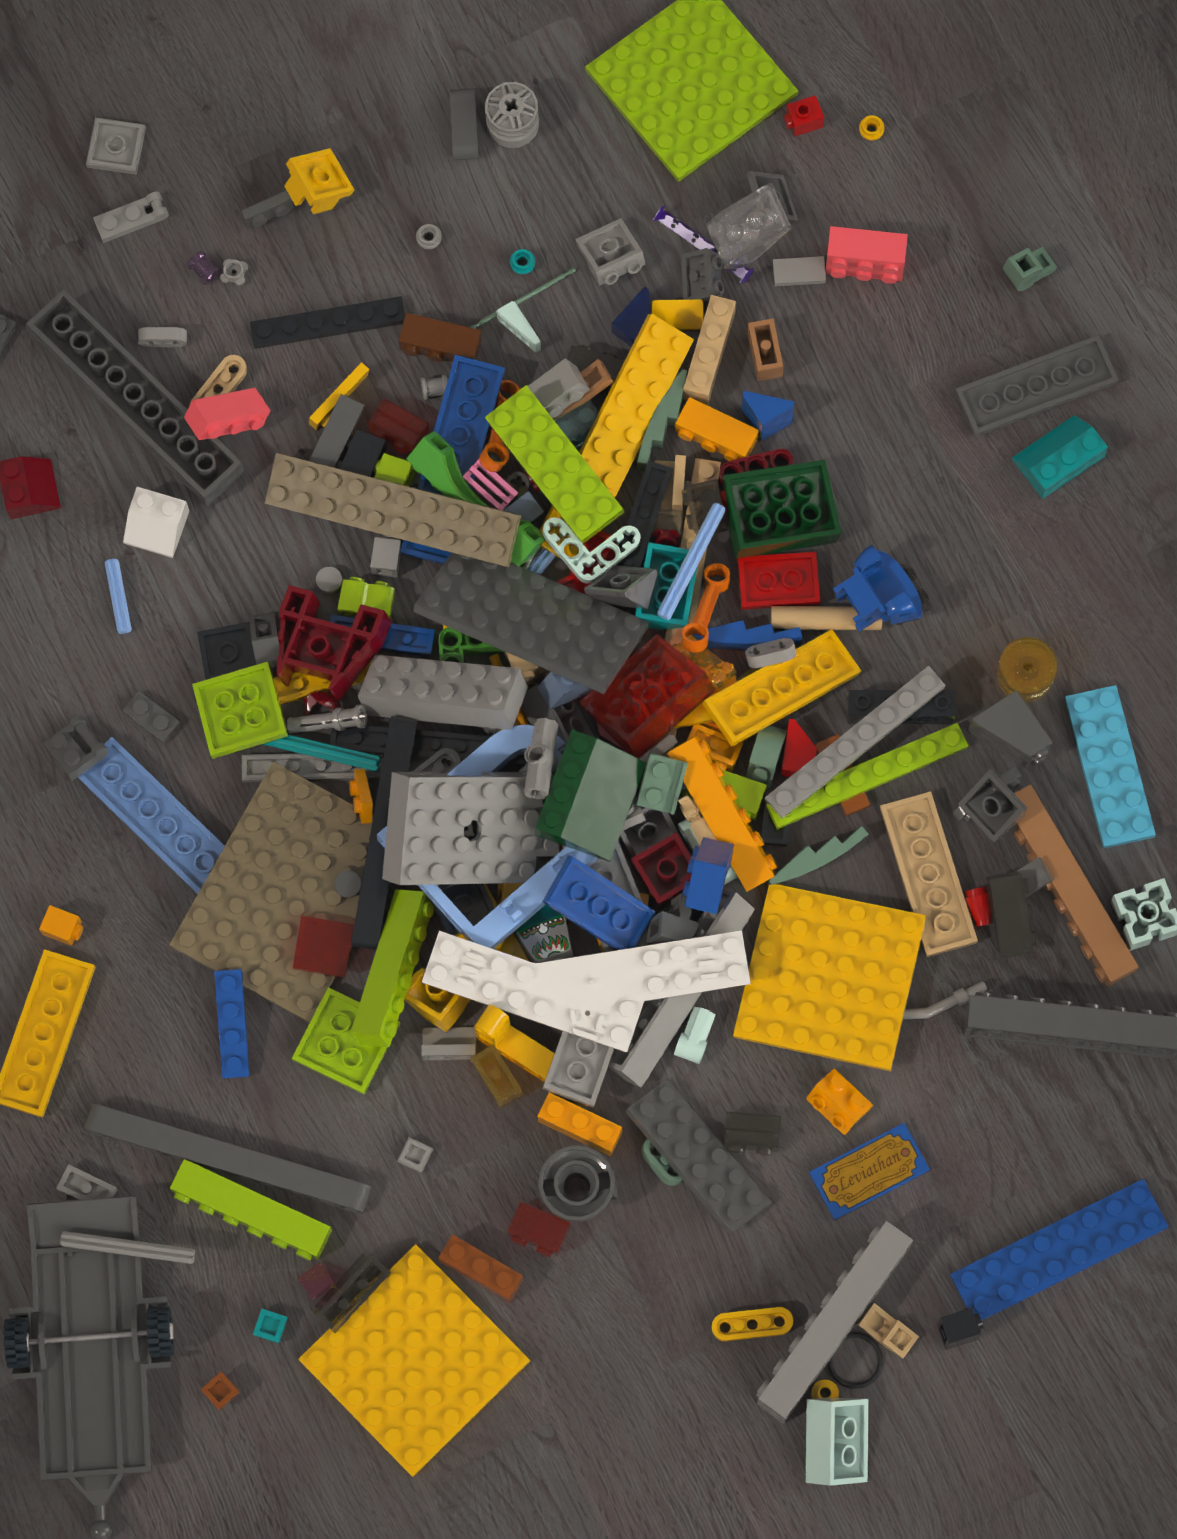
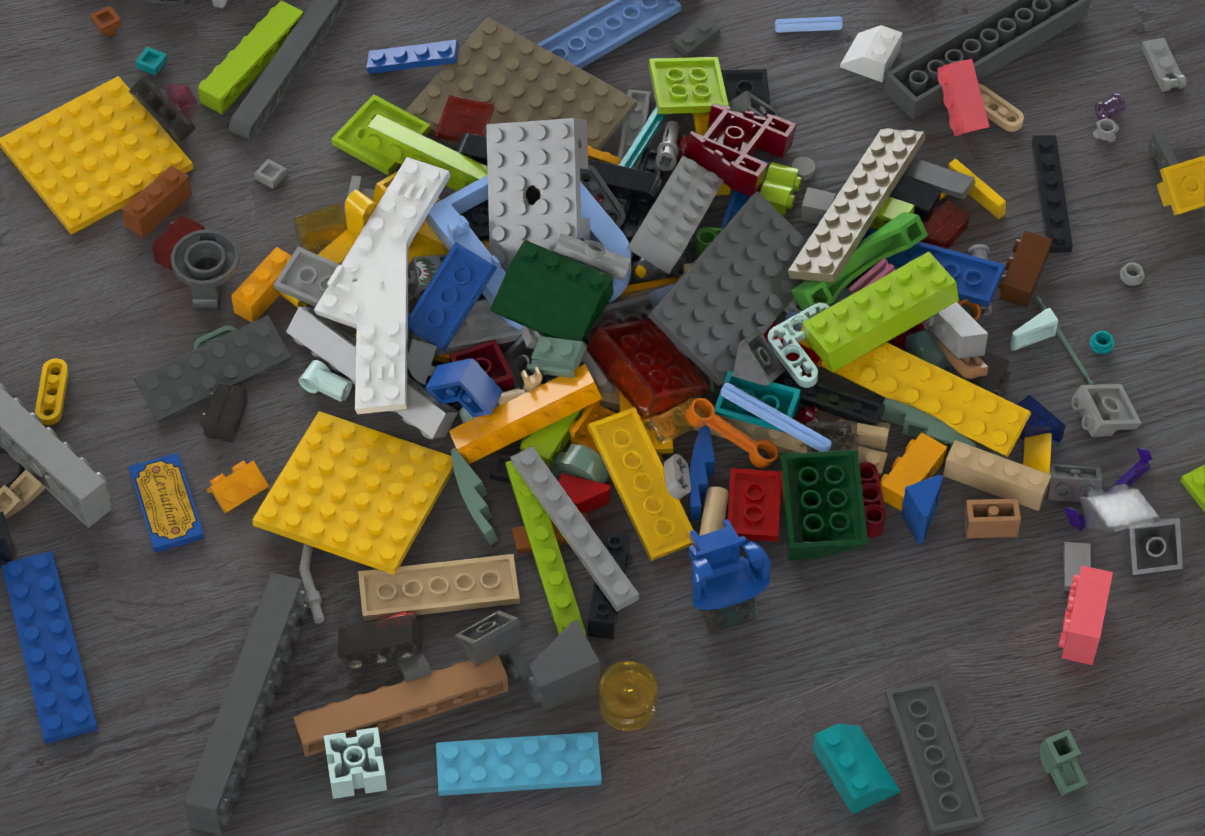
camera: 95 degrees right, 20 degrees down
(162, 337) = (1045, 73): light grey beam -> none

